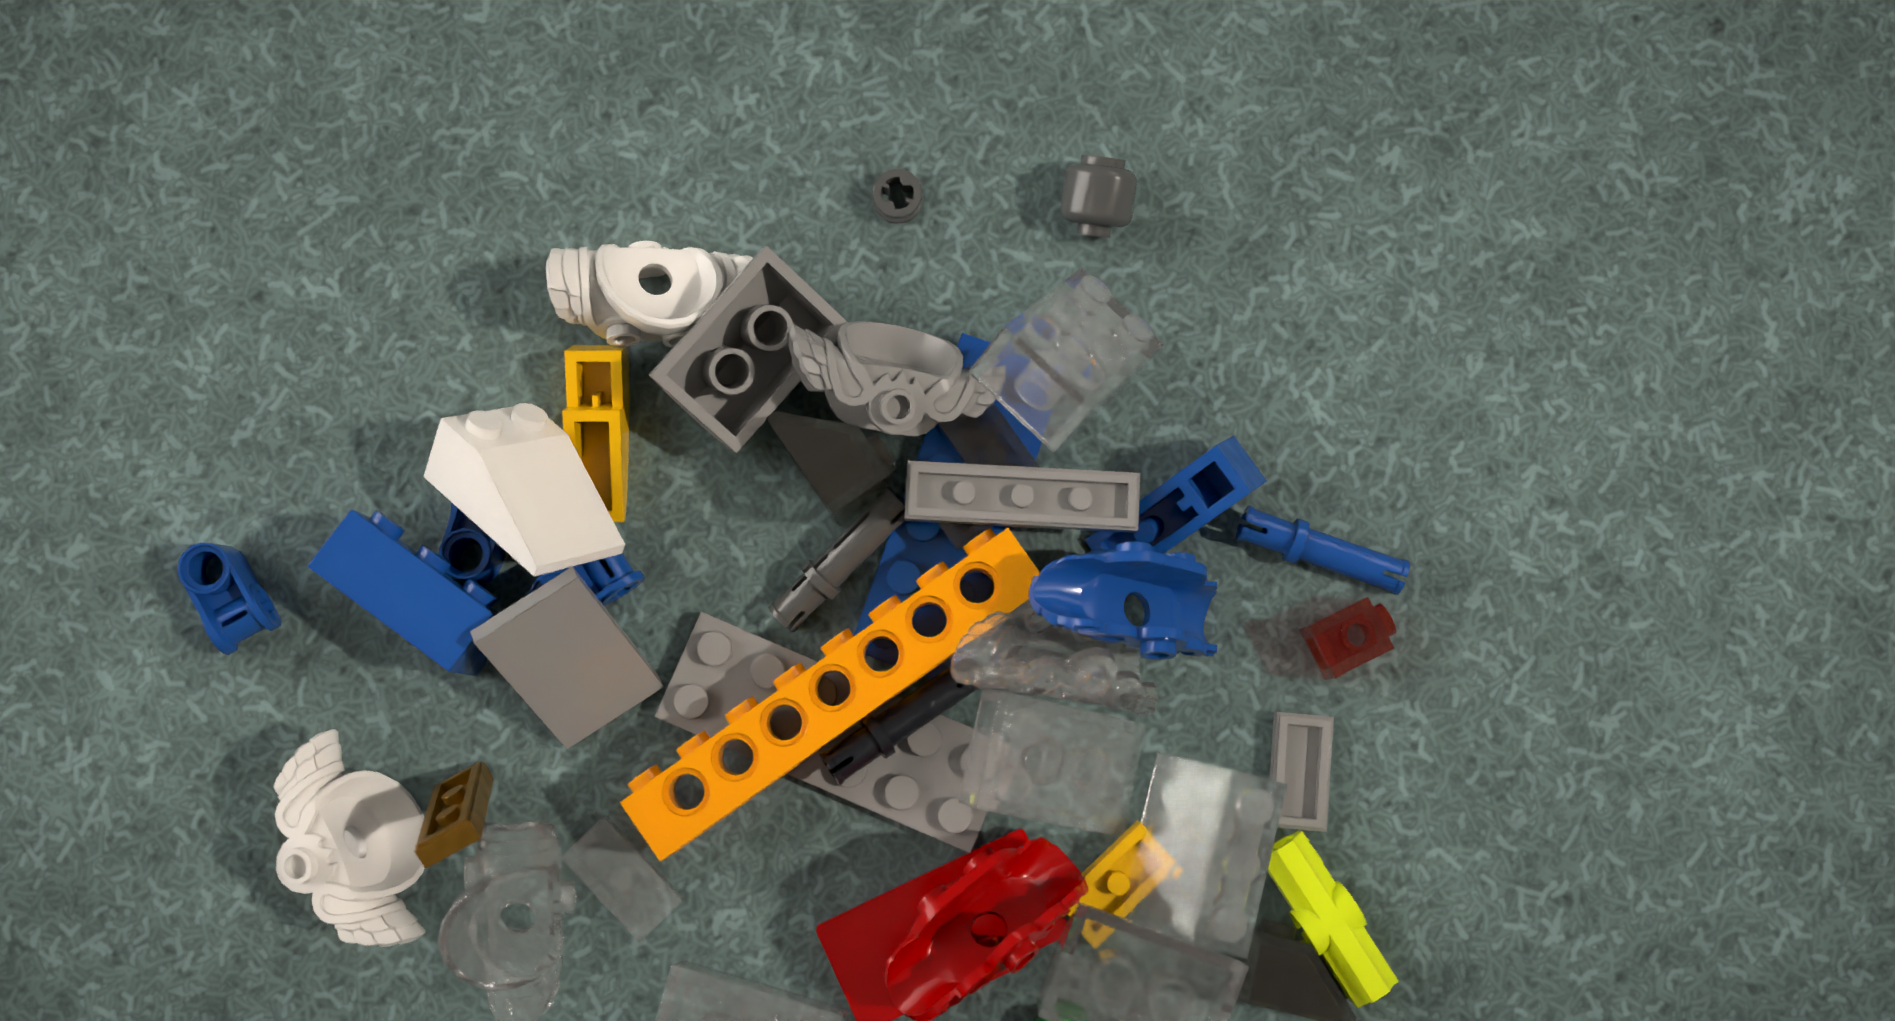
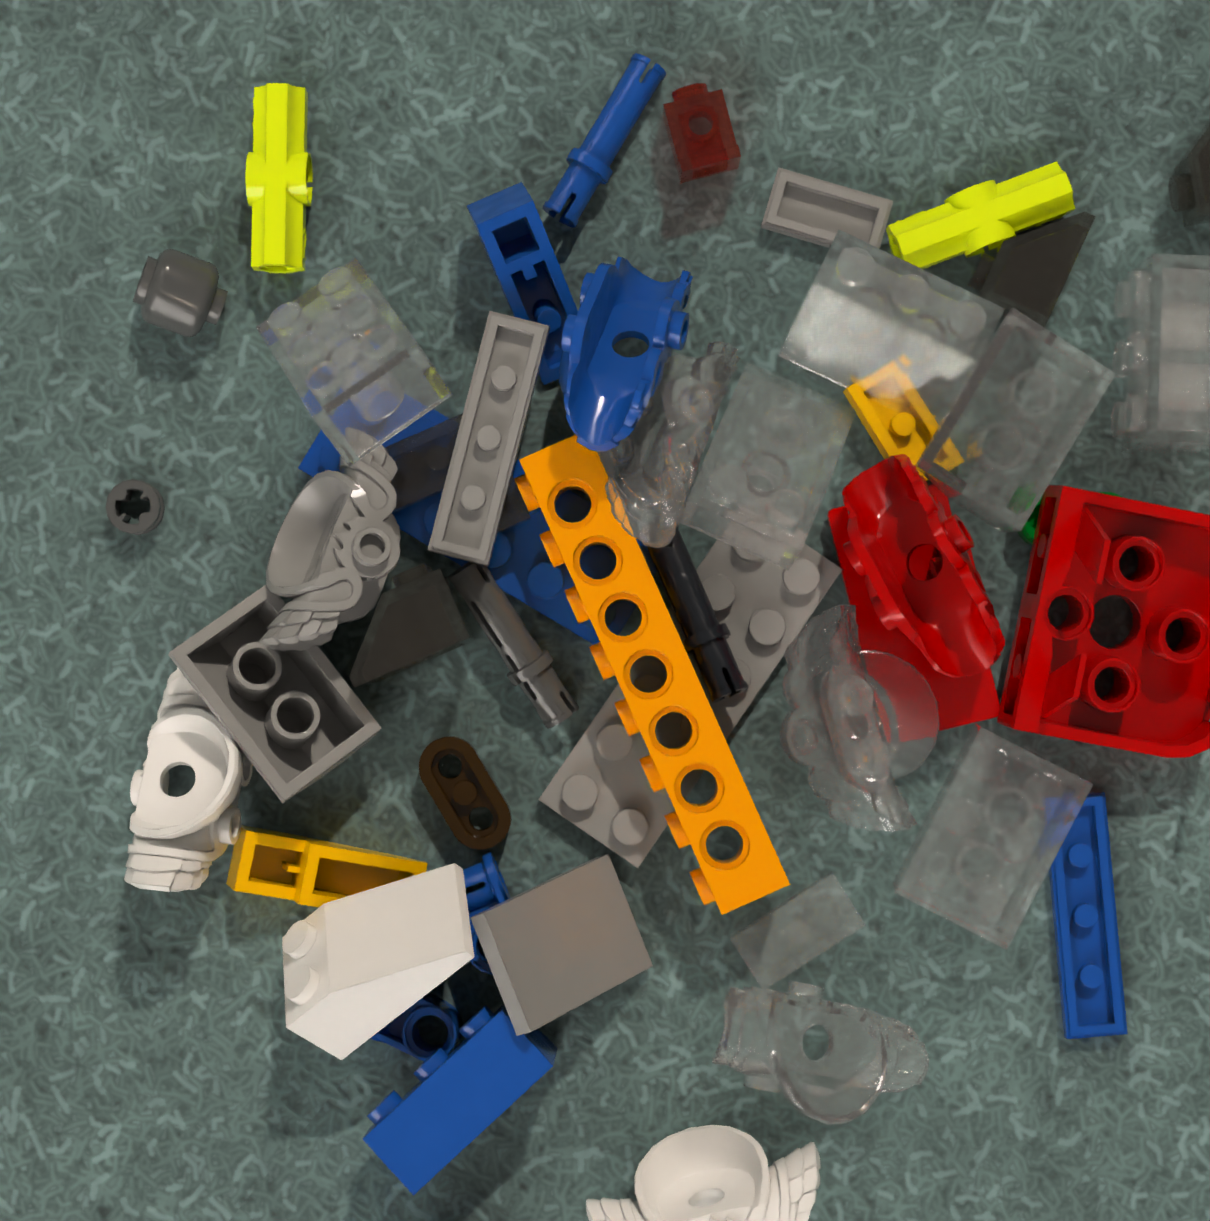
camera: 70 degrees left, 5 degrees up
(455, 814) = (699, 1086): pearl gold tile -> none
(692, 539) = (462, 794): none -> dark brown plate
(829, 894) = (855, 721): none -> clear piece
(1221, 262) = (278, 178): none -> neon yellow piece

